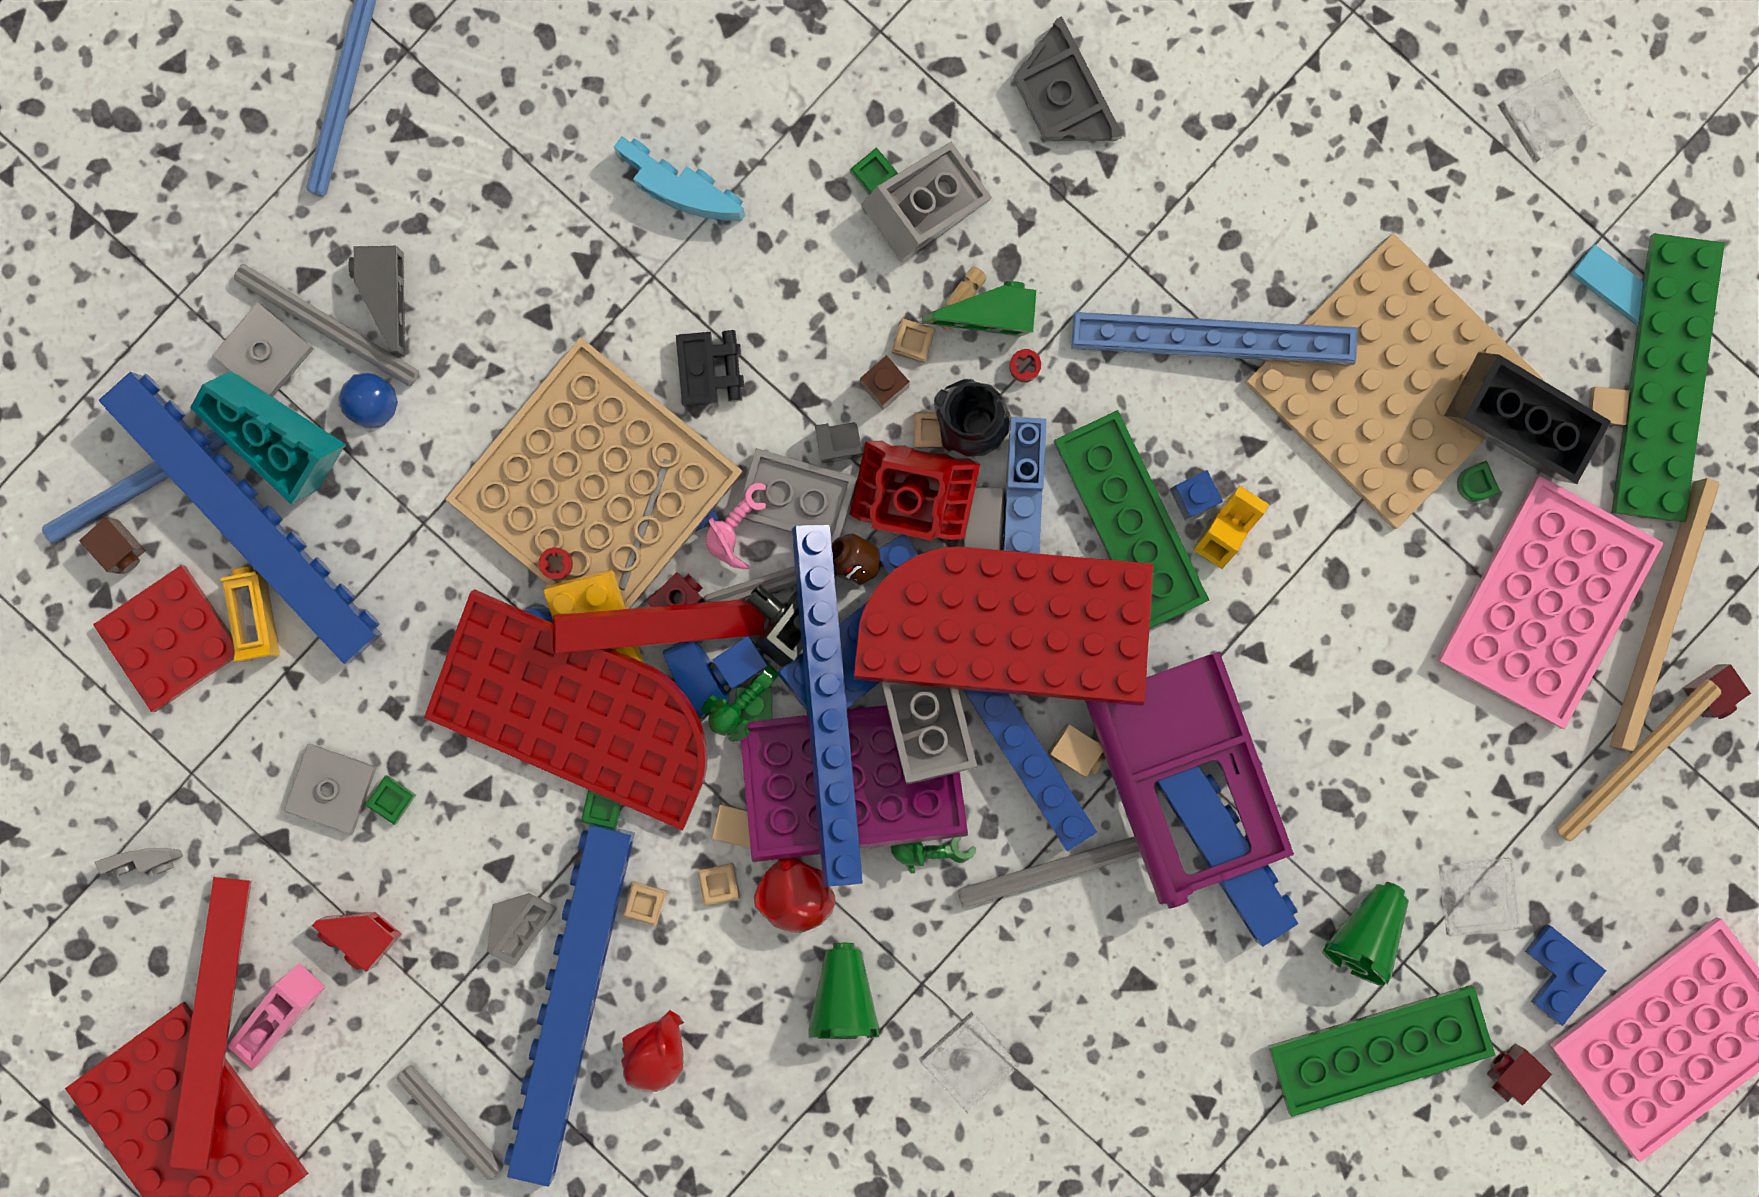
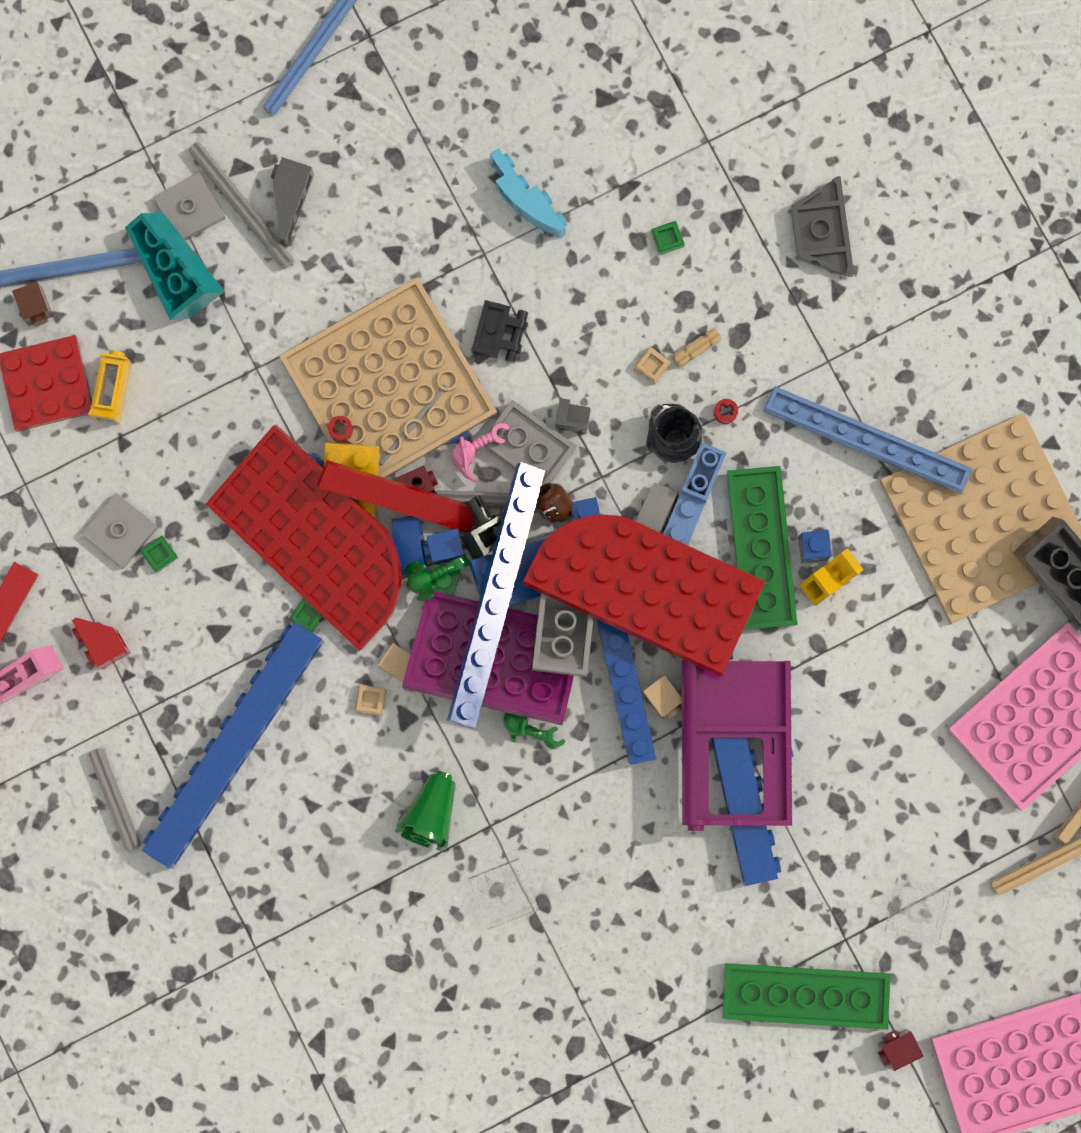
camera: 20 degrees right, 5 degrees down
(240, 516) = (131, 317): blue brick -> none
(368, 400) = (250, 267): blue hair -> none
(516, 925) = (215, 675): light grey slope -> none
(644, 903) = (312, 694): tan tile -> none
(653, 1054) = (279, 801): red helmet -> none
(794, 896) = (422, 725): red helmet -> none
(884, 382) = (620, 386): reddish brown brick -> none
(914, 491) = (614, 470): red slope -> none
(925, 200) = (696, 270): light grey slope -> none
(926, 430) = (638, 432): tan tile -> none
(999, 311) = (718, 364): green slope -> none
(1049, 872) = (611, 778): light grey axle -> none
(1371, 935) = (827, 908): green cone -> none
(1477, 483) = (1022, 612): green tile -> none
(1571, 978) = (966, 990): blue plate -> none

